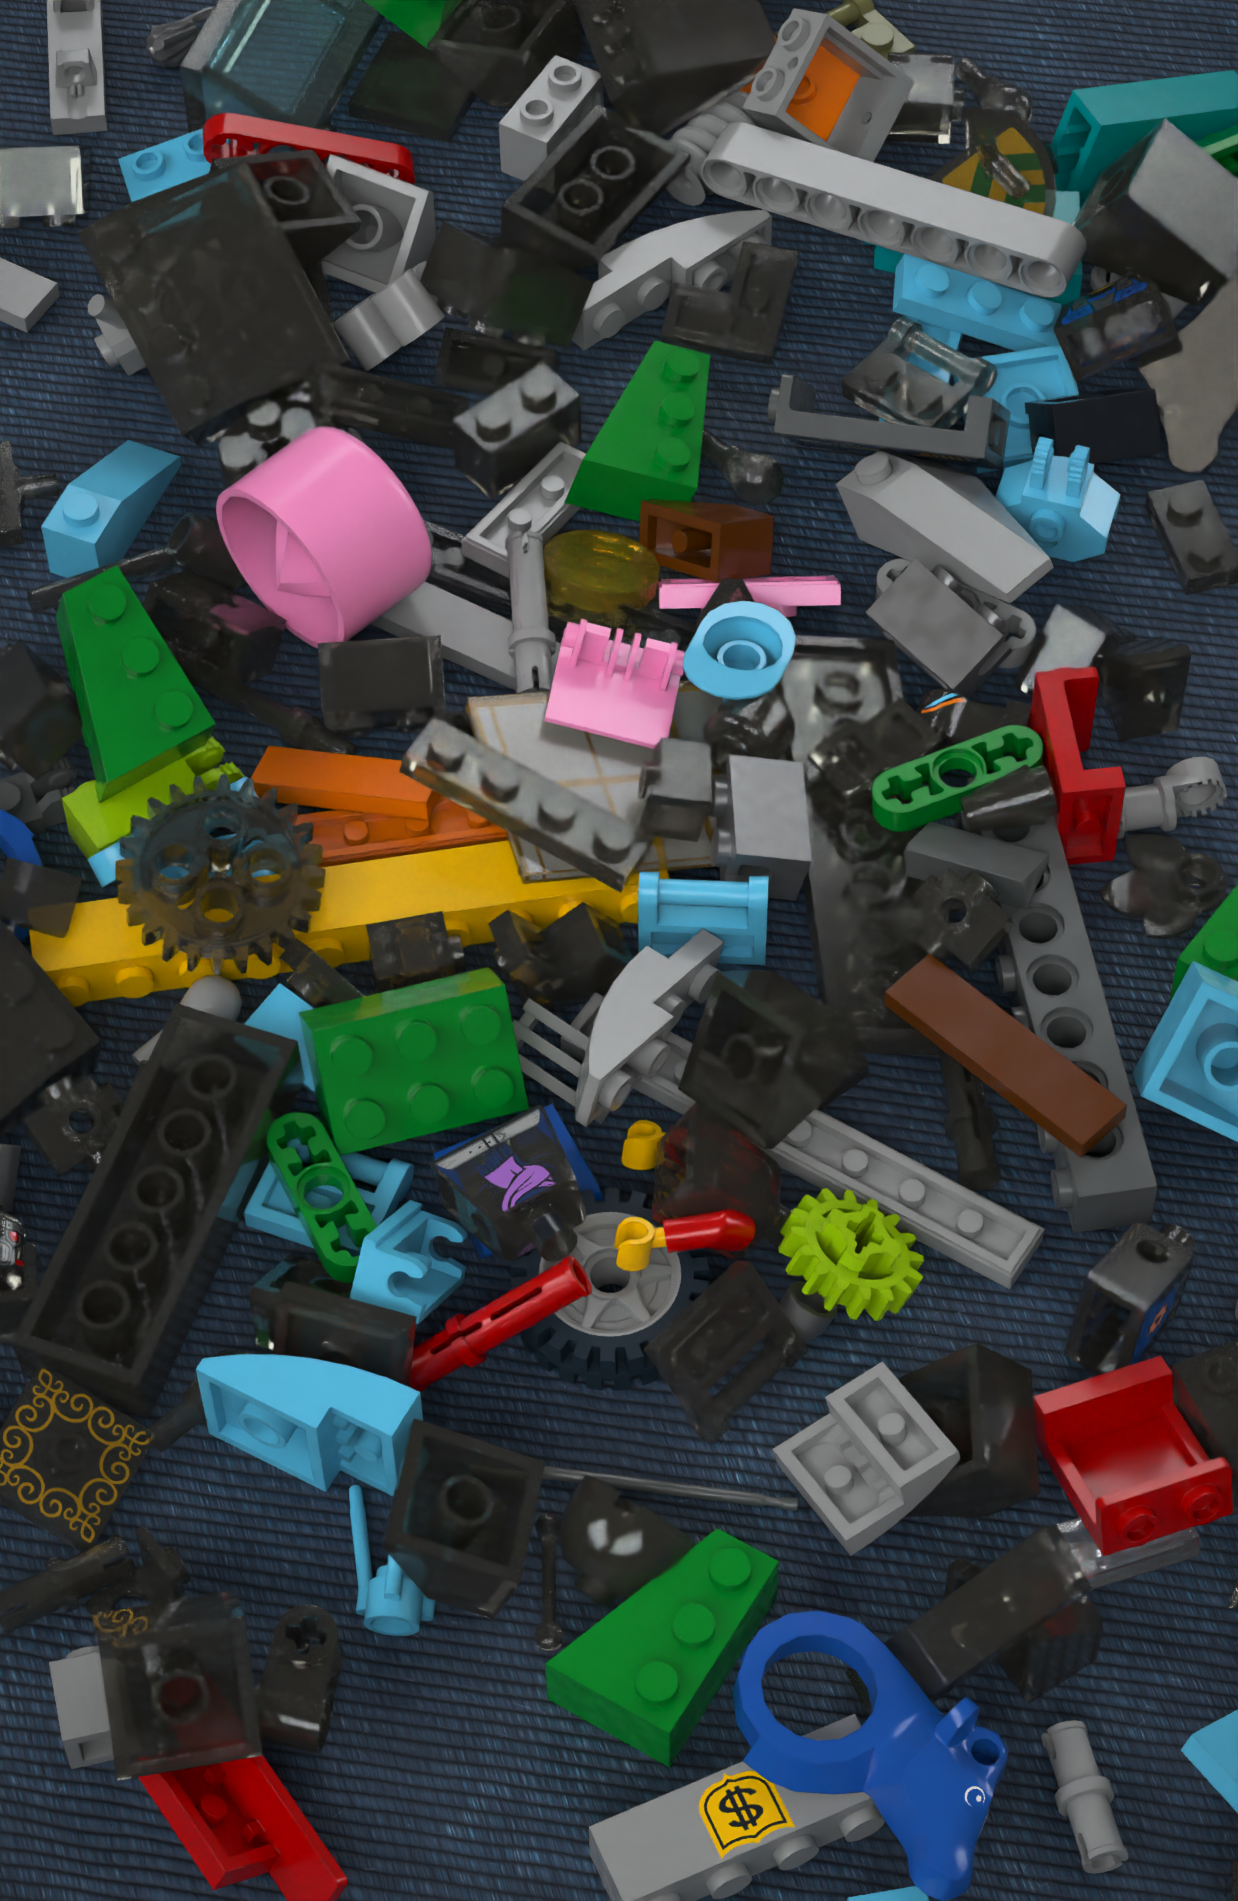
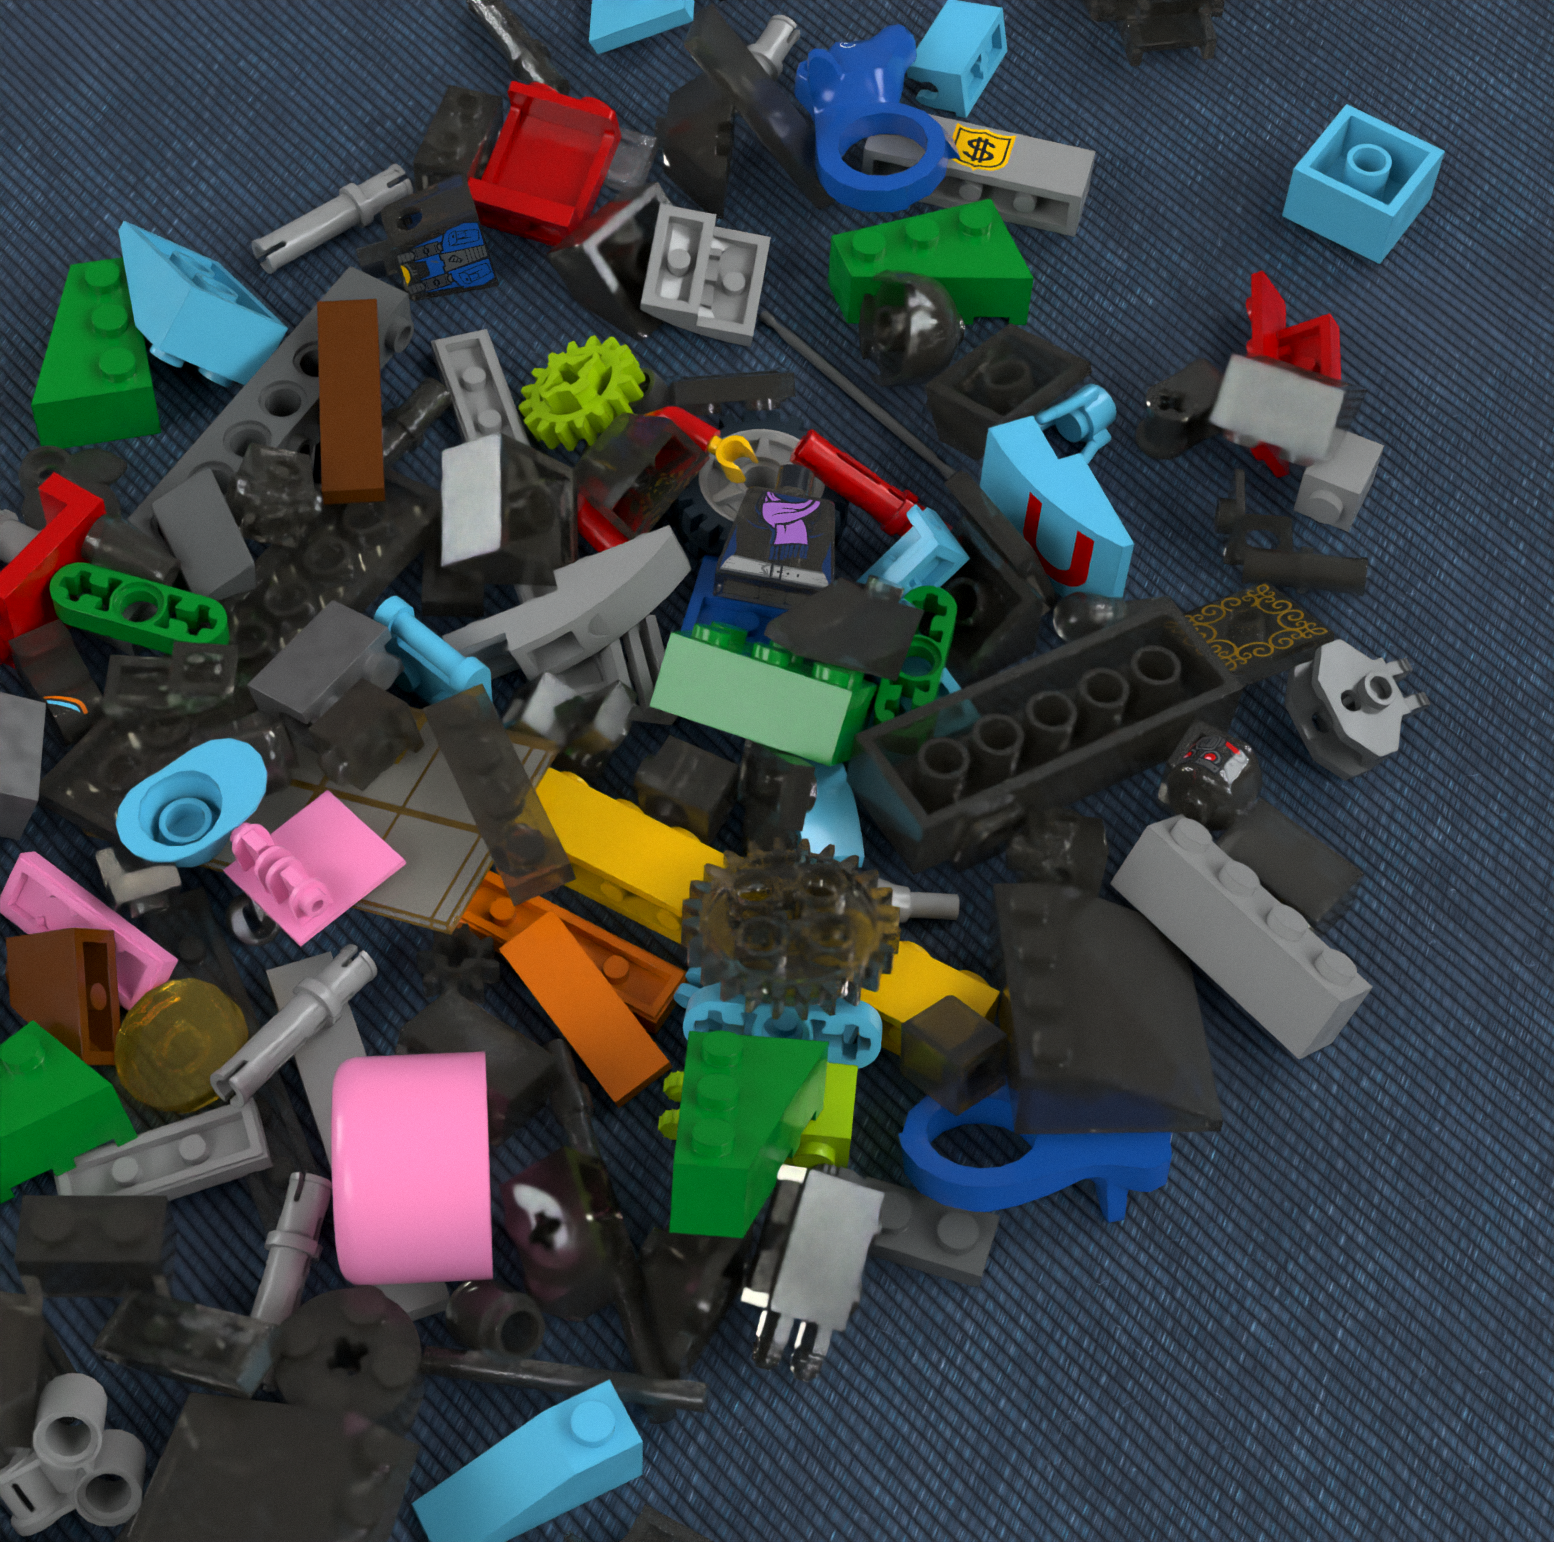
camera: 145 degrees left, 0 degrees up
(393, 1123) = (851, 626): none -> clear smoke slope

